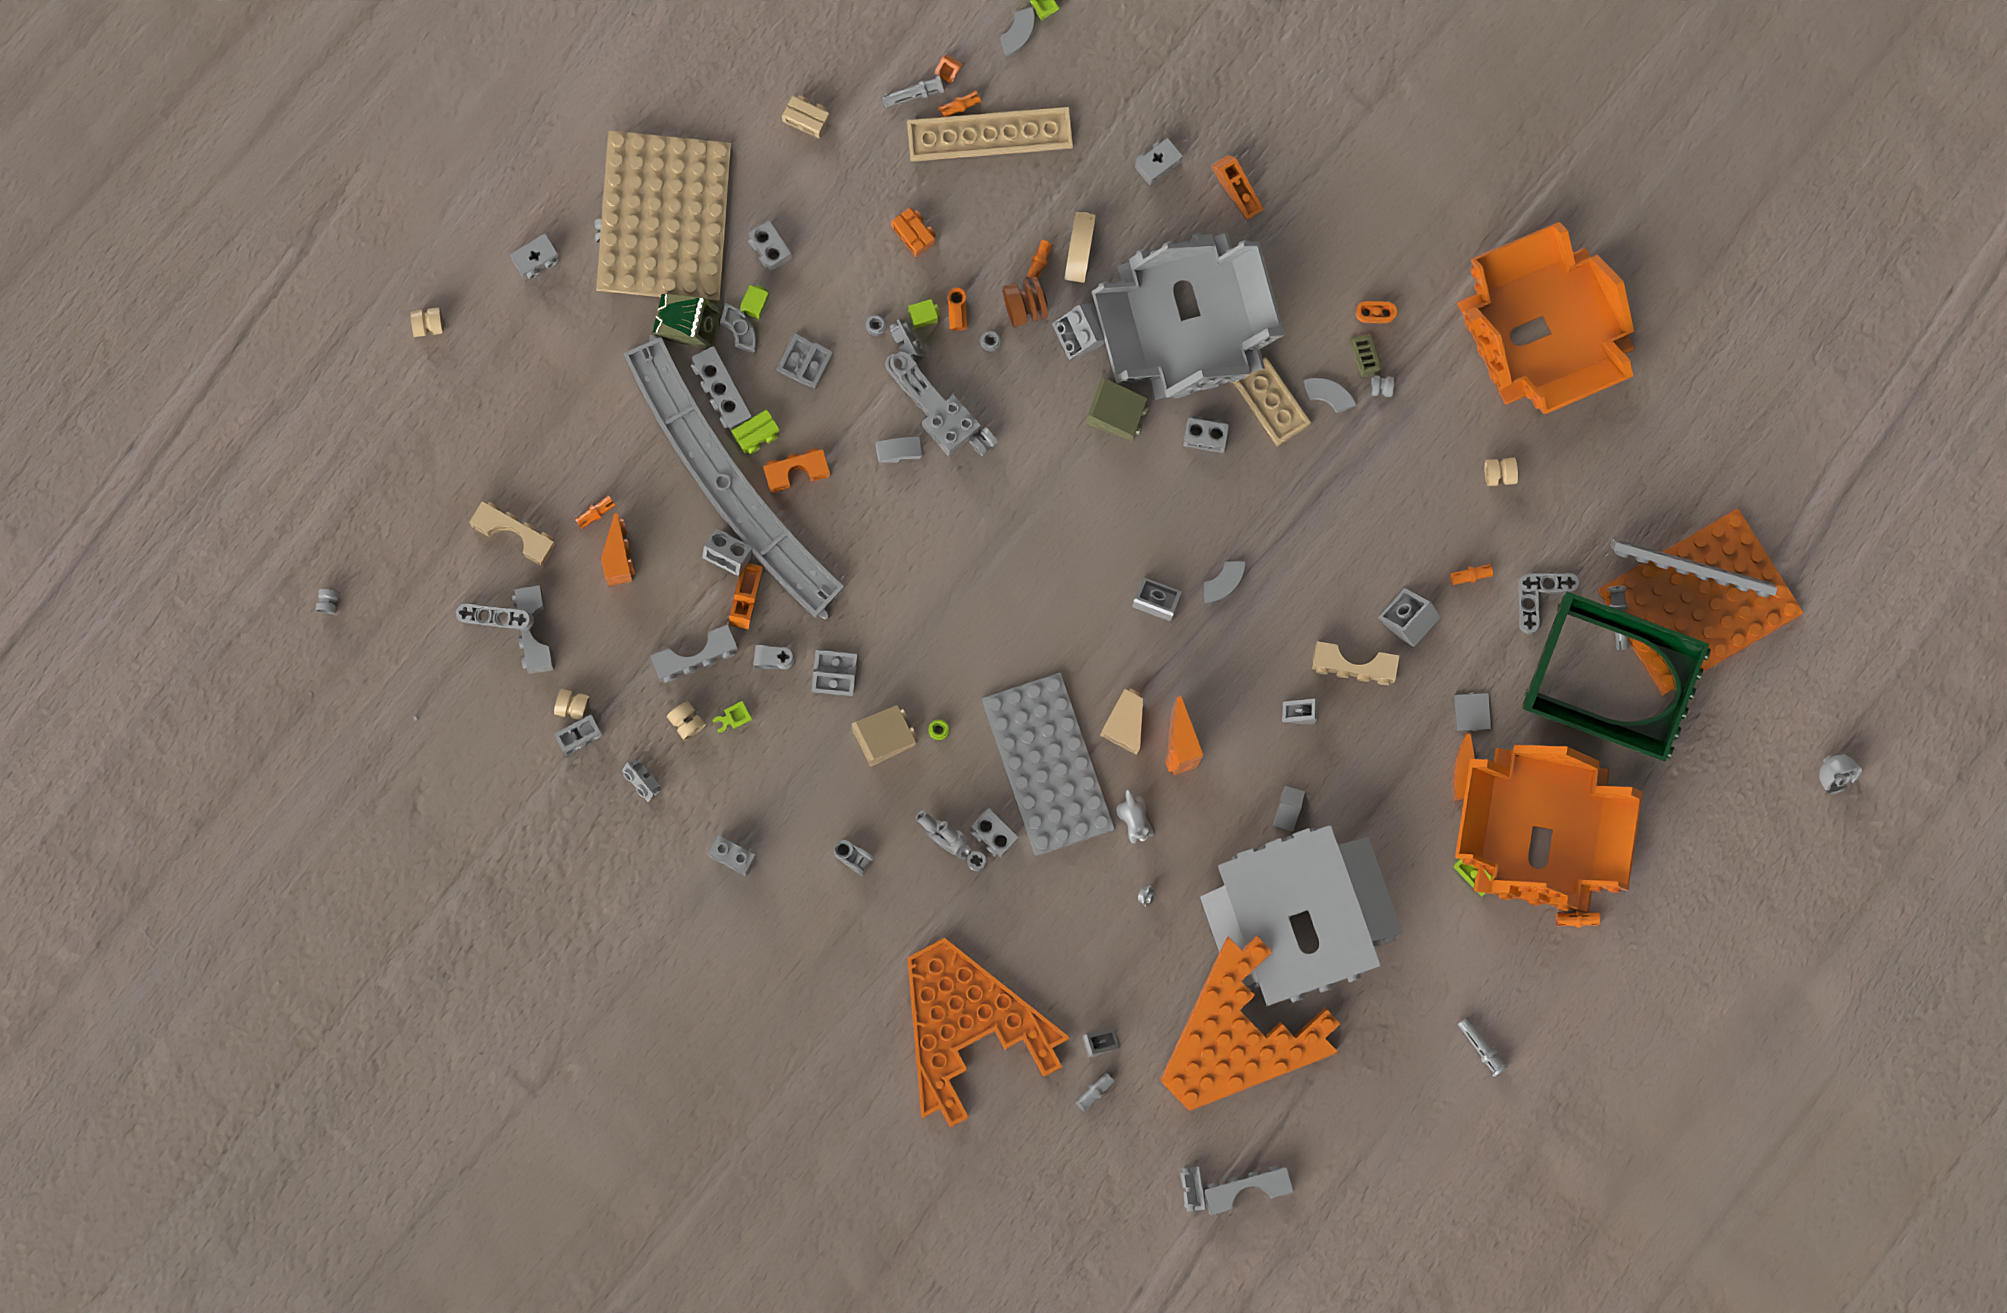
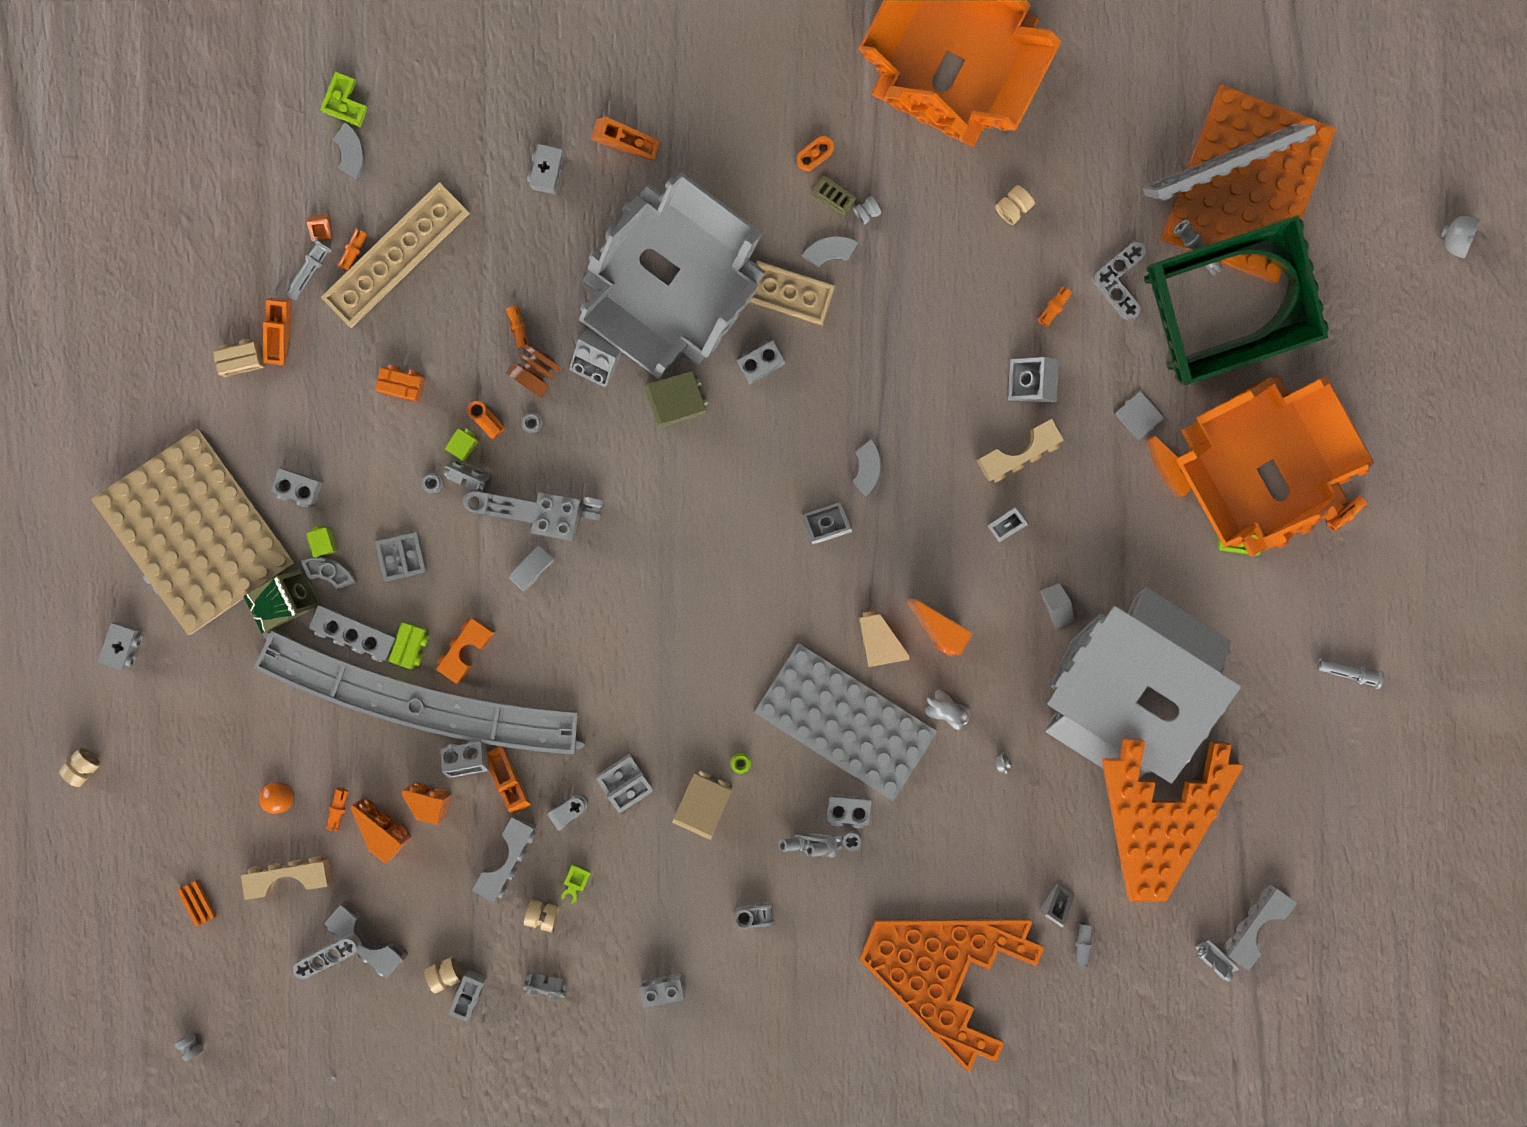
camera: 30 degrees left, 10 degrees up
(428, 480) = (189, 906): none -> orange tile
(555, 466) = (276, 798): none -> orange hair
(671, 563) = (426, 803): none -> orange slope
(851, 118) = (276, 330): none -> orange slope
(1080, 247) = (540, 290): tan arch -> none

